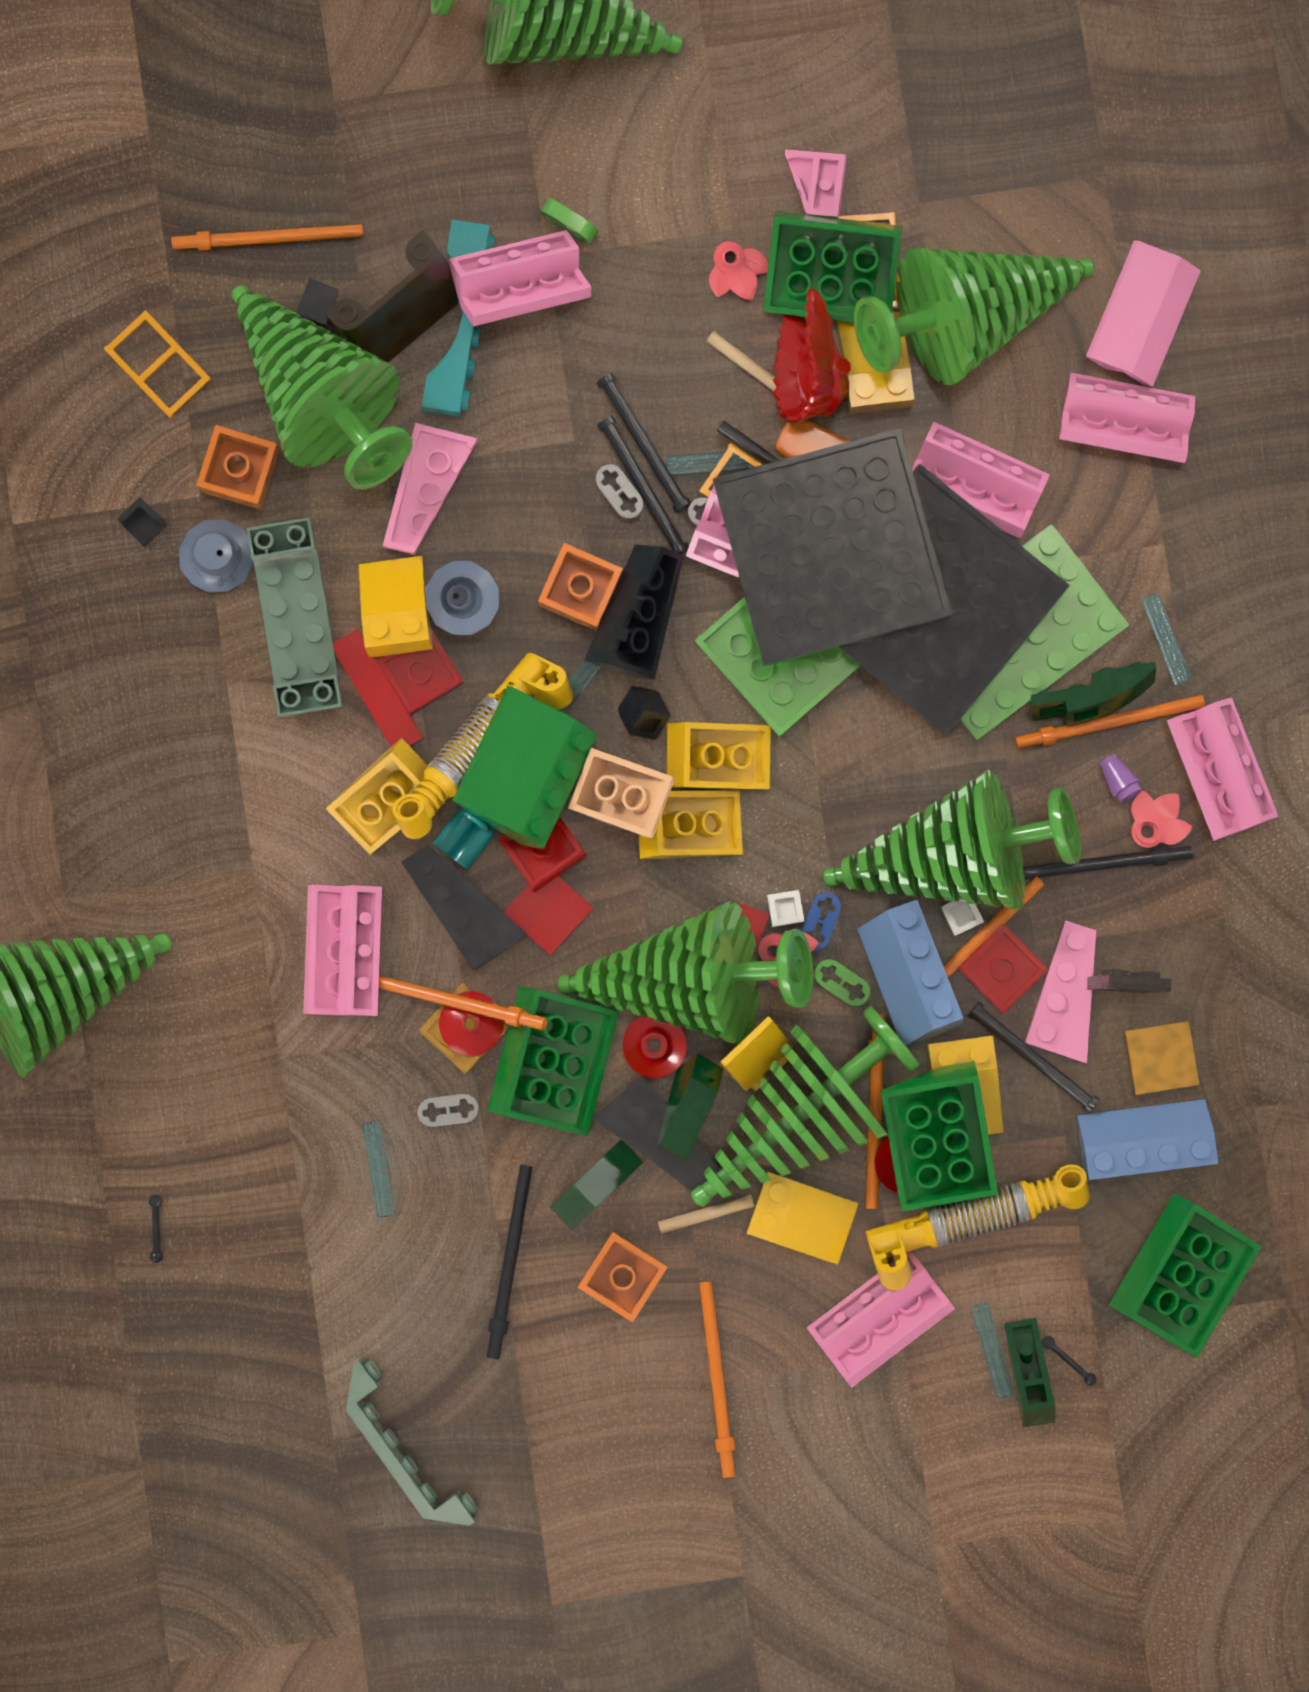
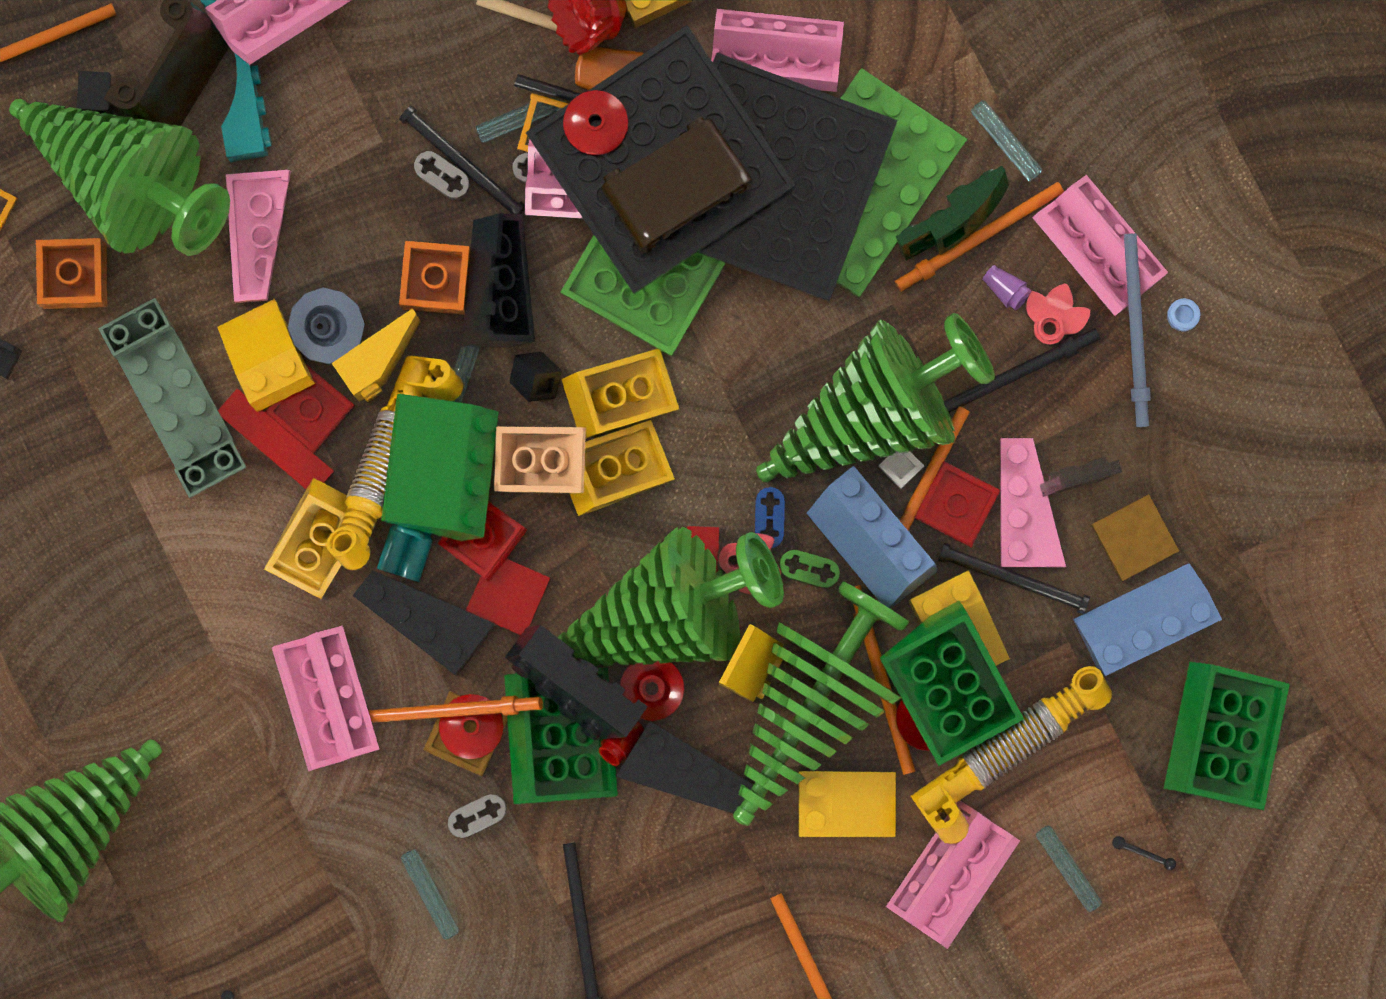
camera: 15 degrees left, 0 degrees up
(200, 559) = (69, 377): sand blue hat -> none
(495, 646) = (374, 360): none -> yellow slope
(582, 1018) = (574, 685): none -> black wedge
(596, 1184) = (641, 839): dark green slope -> none
(607, 1087) = (618, 749): none -> red cone
(622, 1276) = (695, 917): orange brick -> none
(643, 442) = (502, 165): black bar -> none
(689, 1104) = (703, 733): dark green slope -> none
(706, 1214) = (754, 831): tan bar -> none
(781, 508) = (597, 139): none -> red dish
(785, 908) = (732, 516): white plate -> none
(838, 575) = (675, 184): none -> dark brown windscreen
(1030, 1373) = (1111, 877): dark green slope -> none
(1213, 921) = (1140, 393): none -> sand blue bar
(1279, 861) = (1183, 315): none -> light blue tile

